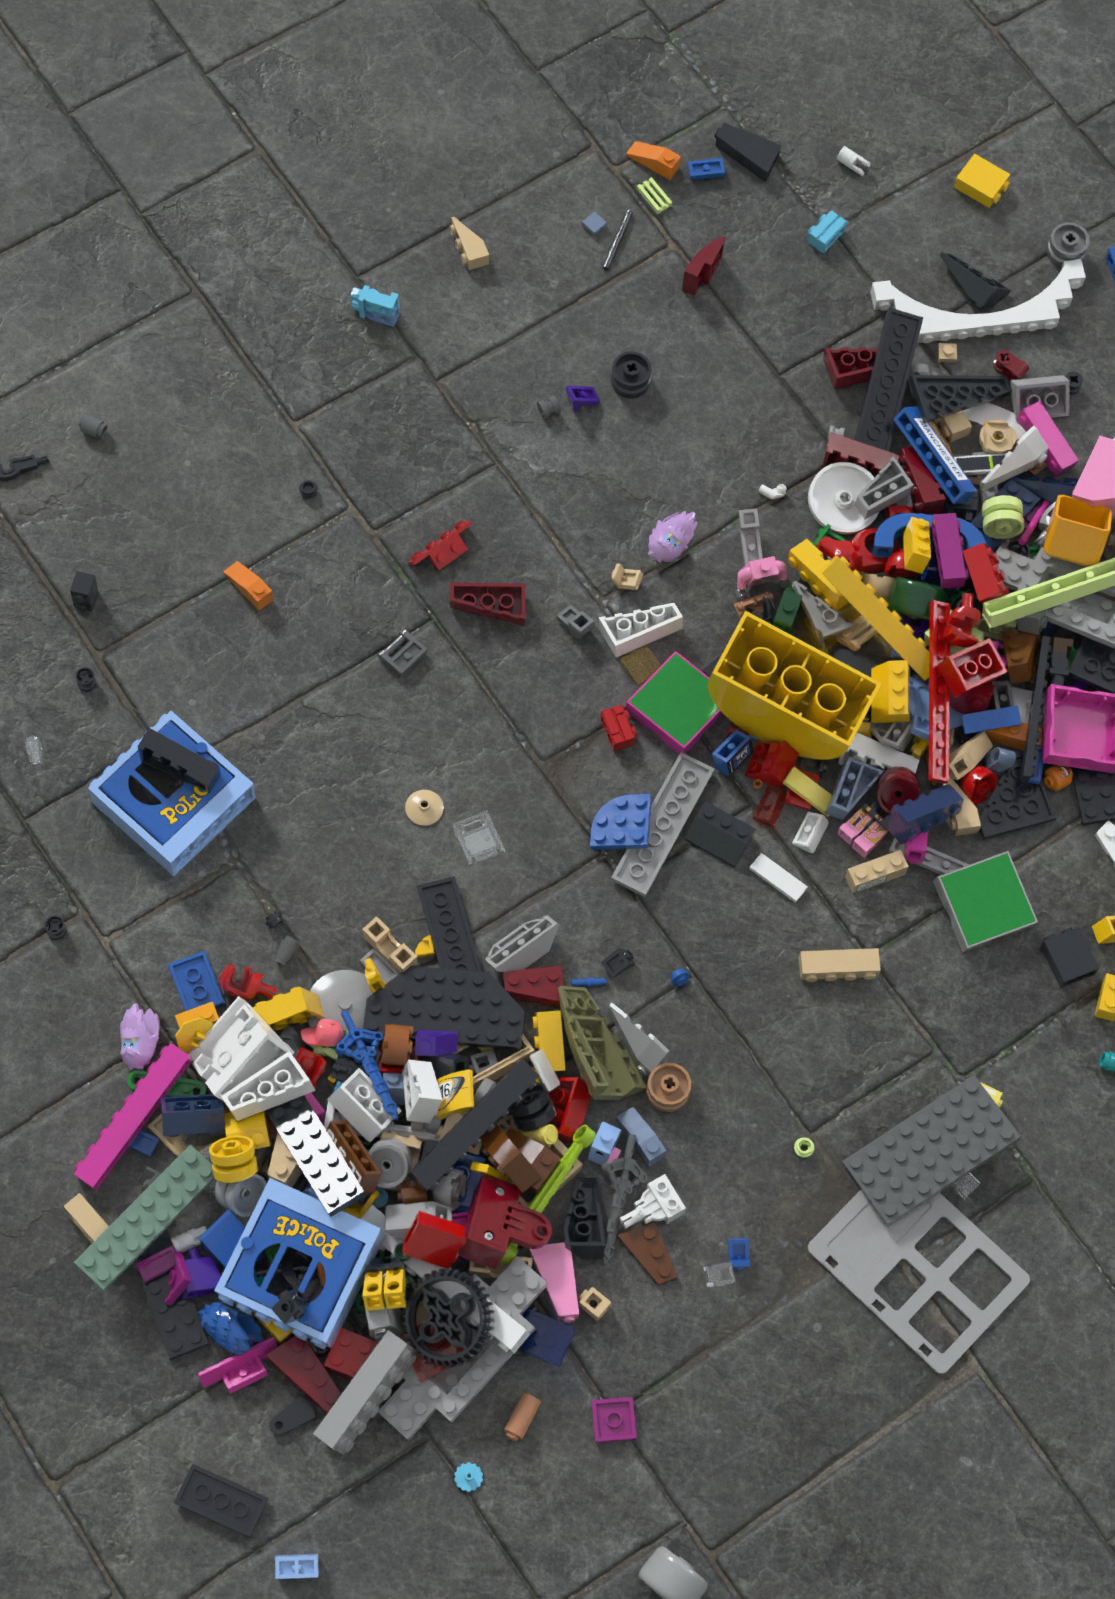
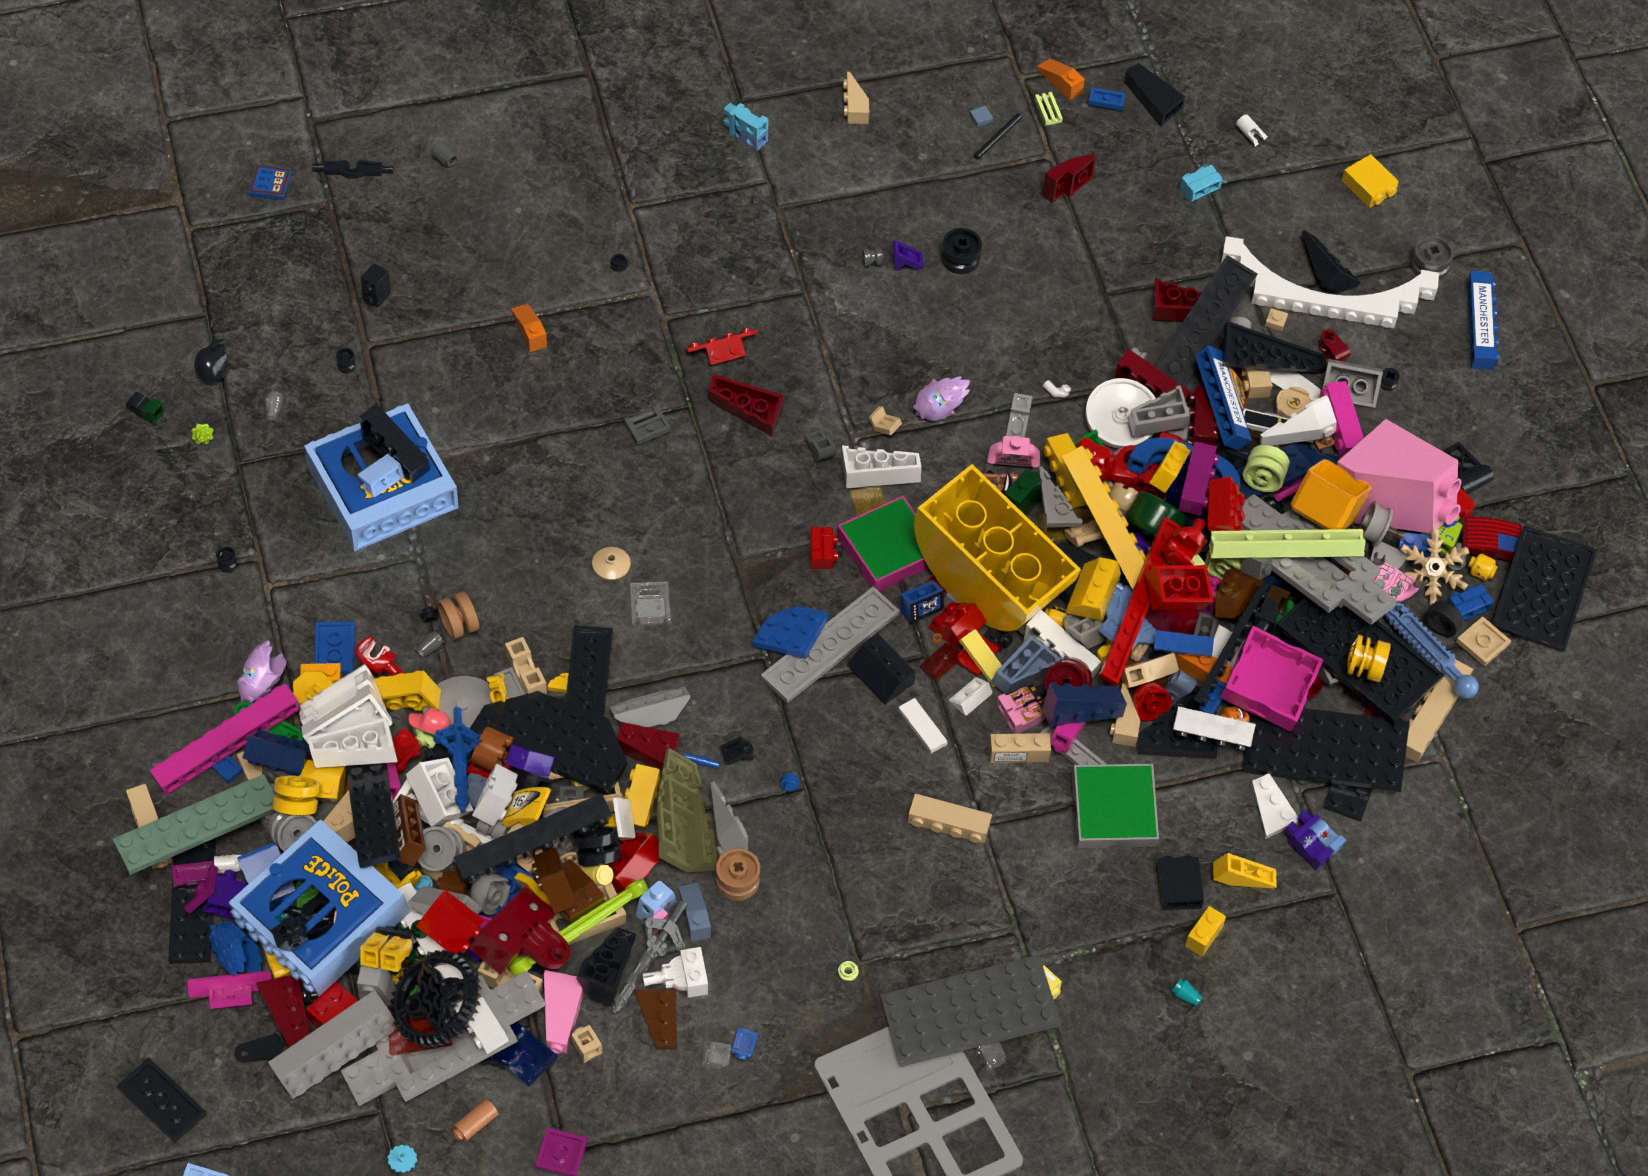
camera: 20 degrees right, 10 degrees down
(177, 796) = (381, 475): none -> light blue hinge
(304, 913) = (458, 615): none -> medium nougat wheel
(1047, 794) = (1213, 727): none -> brick

